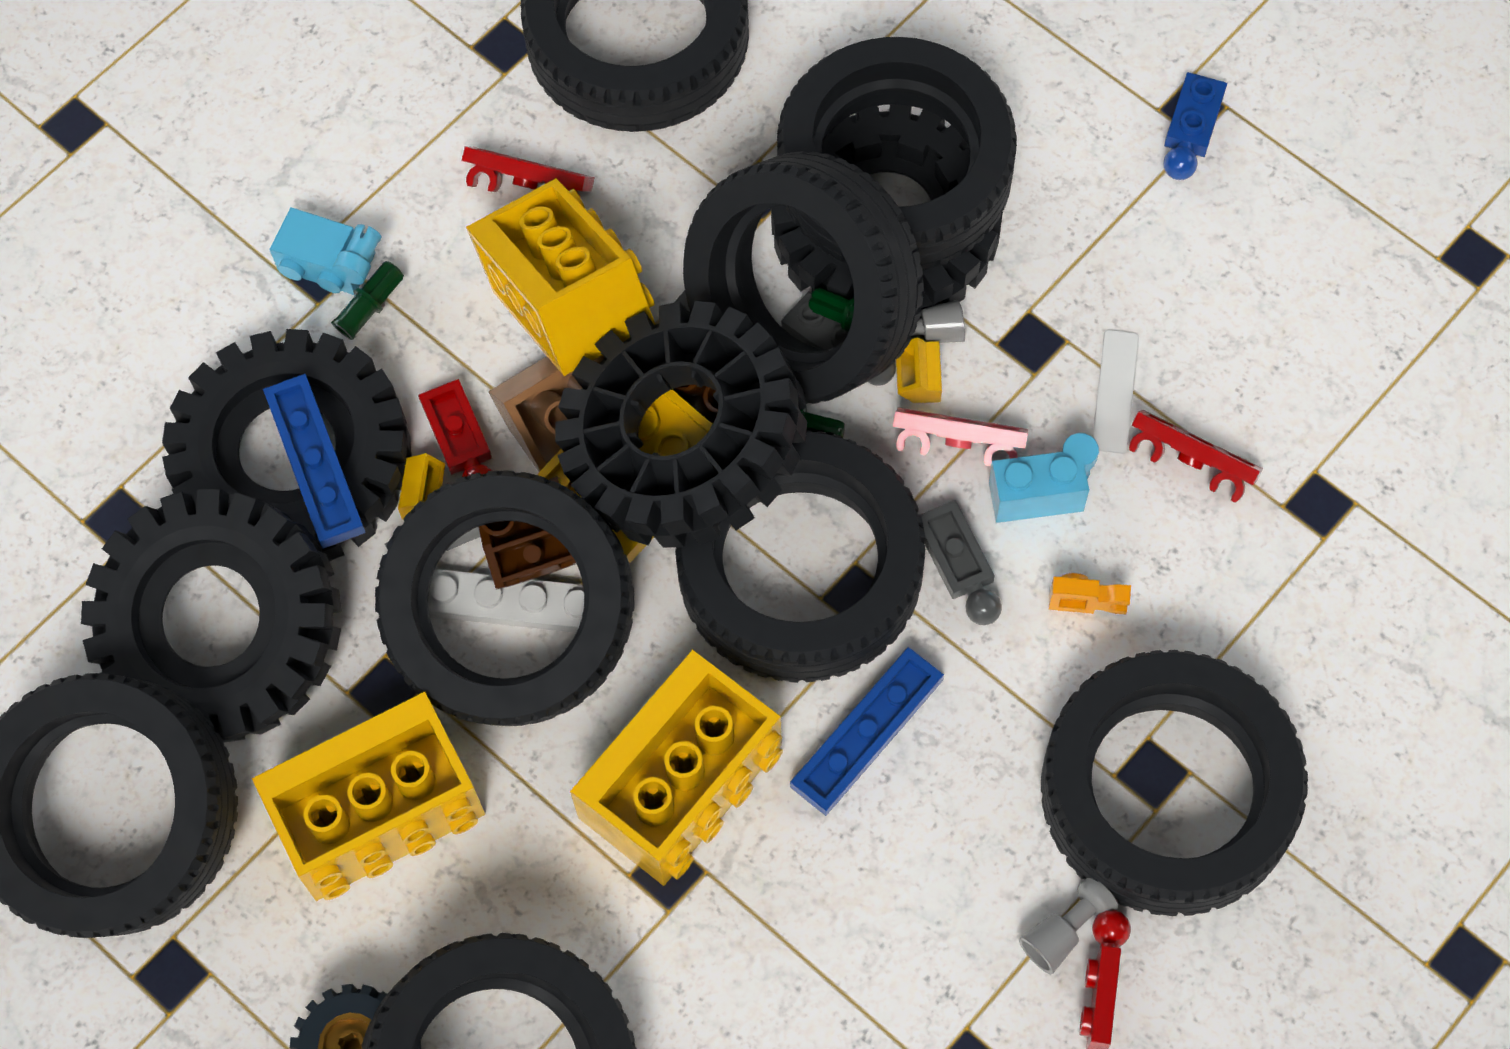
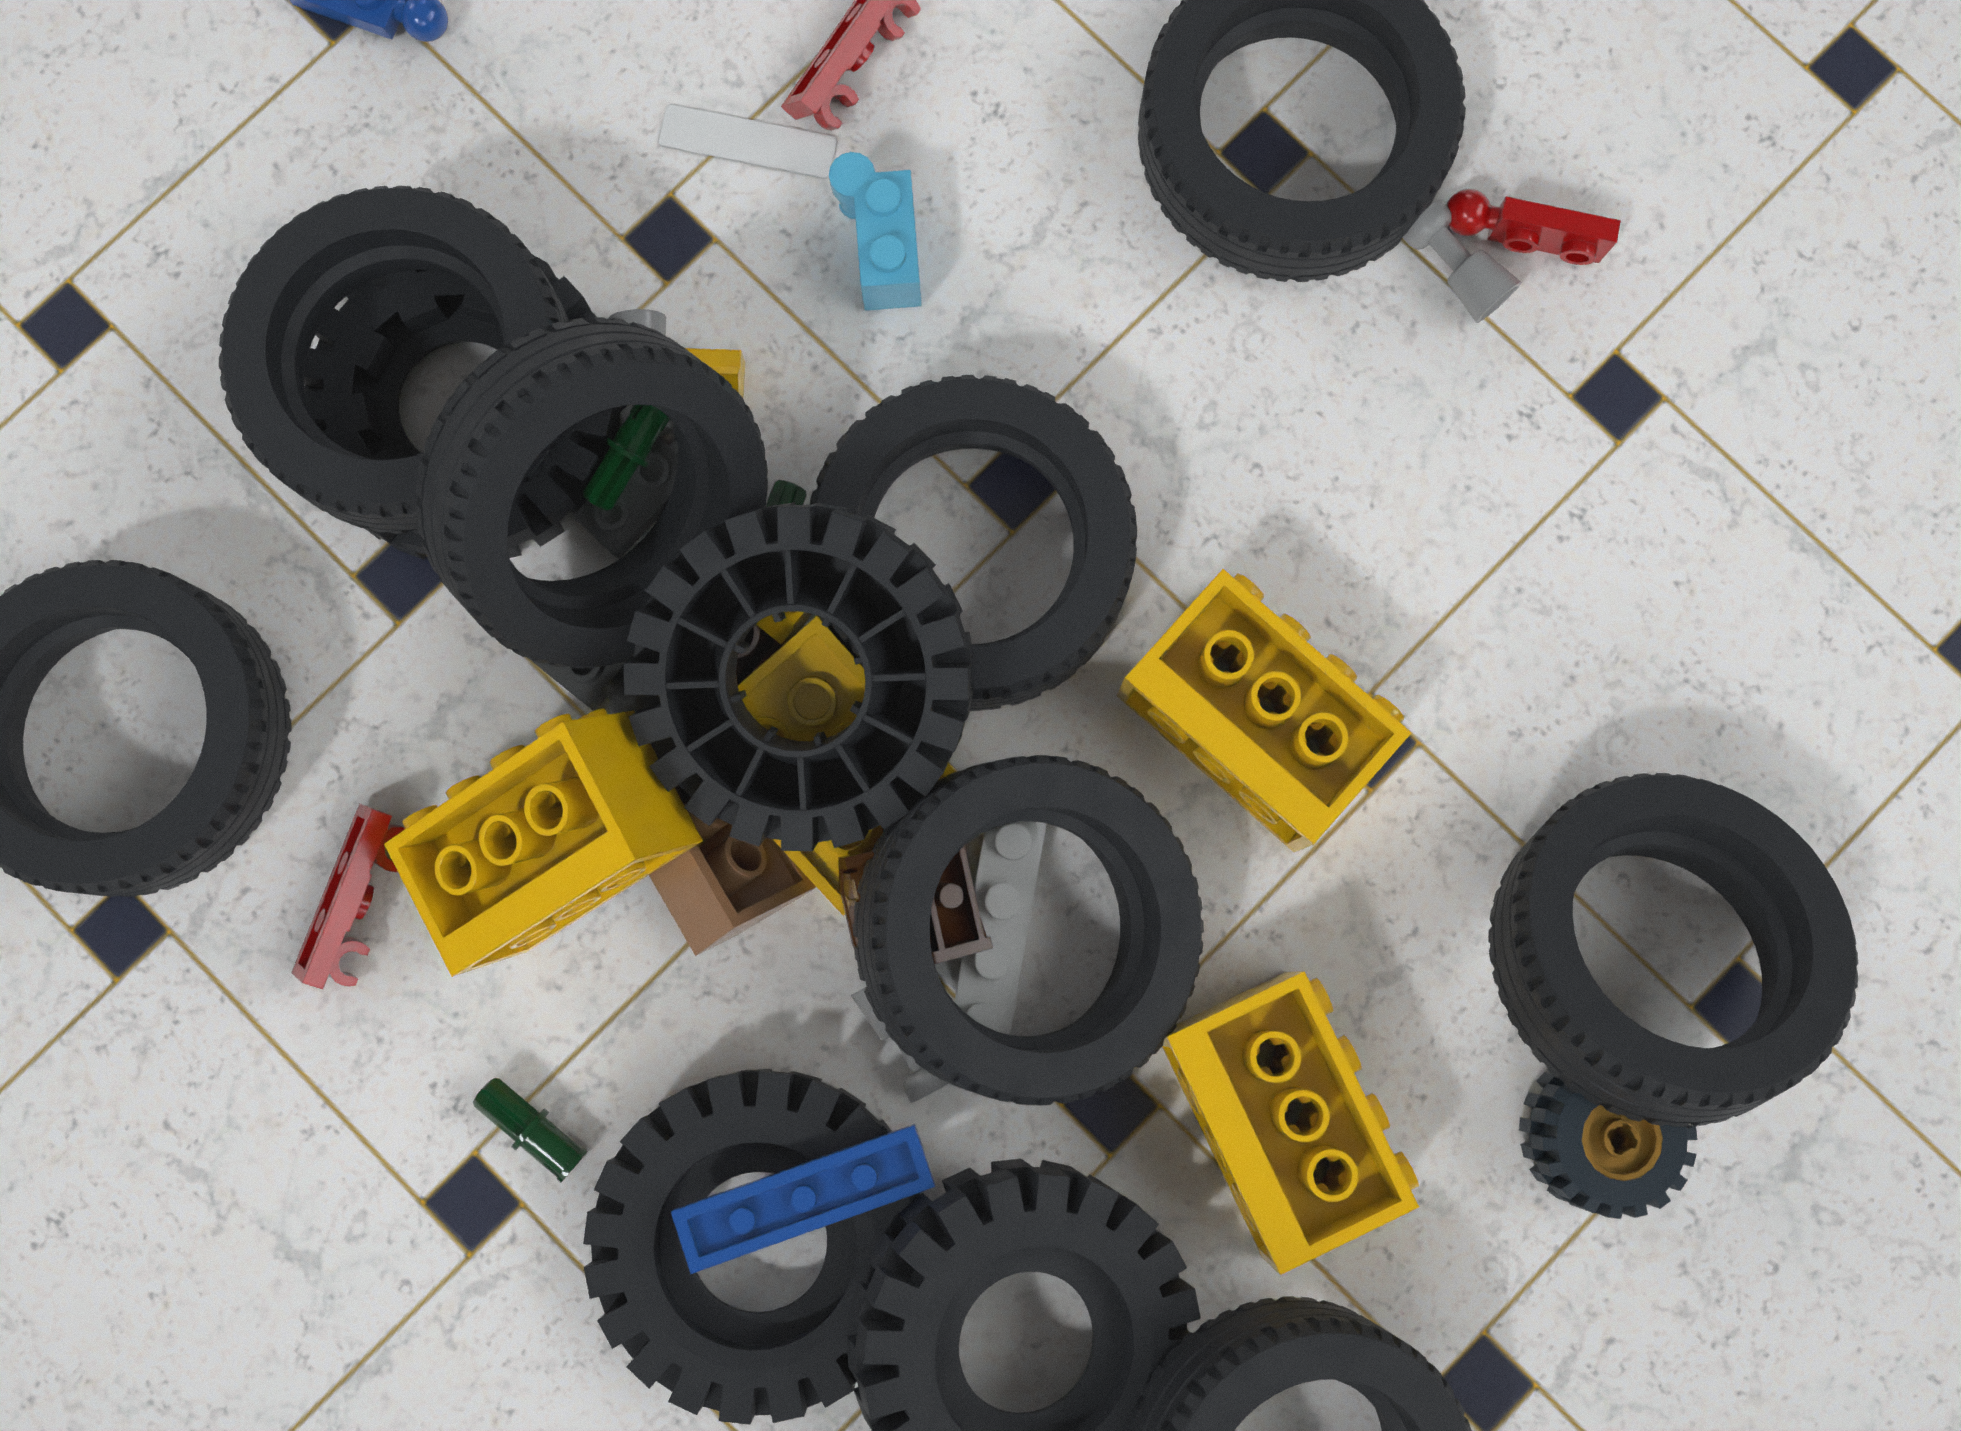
camera: 90 degrees left, 15 degrees up
(324, 251) = (448, 1192): medium azure hinge -> none
(414, 480) = (828, 1051): yellow piece -> none
(456, 429) = (755, 998): red plate -> none
(866, 731) = (1204, 481): blue plate -> none
(958, 432) = (801, 333): plate -> none
(961, 561) = (984, 344): dark grey plate -> none
(1078, 594) = (1034, 208): light orange plate -> none

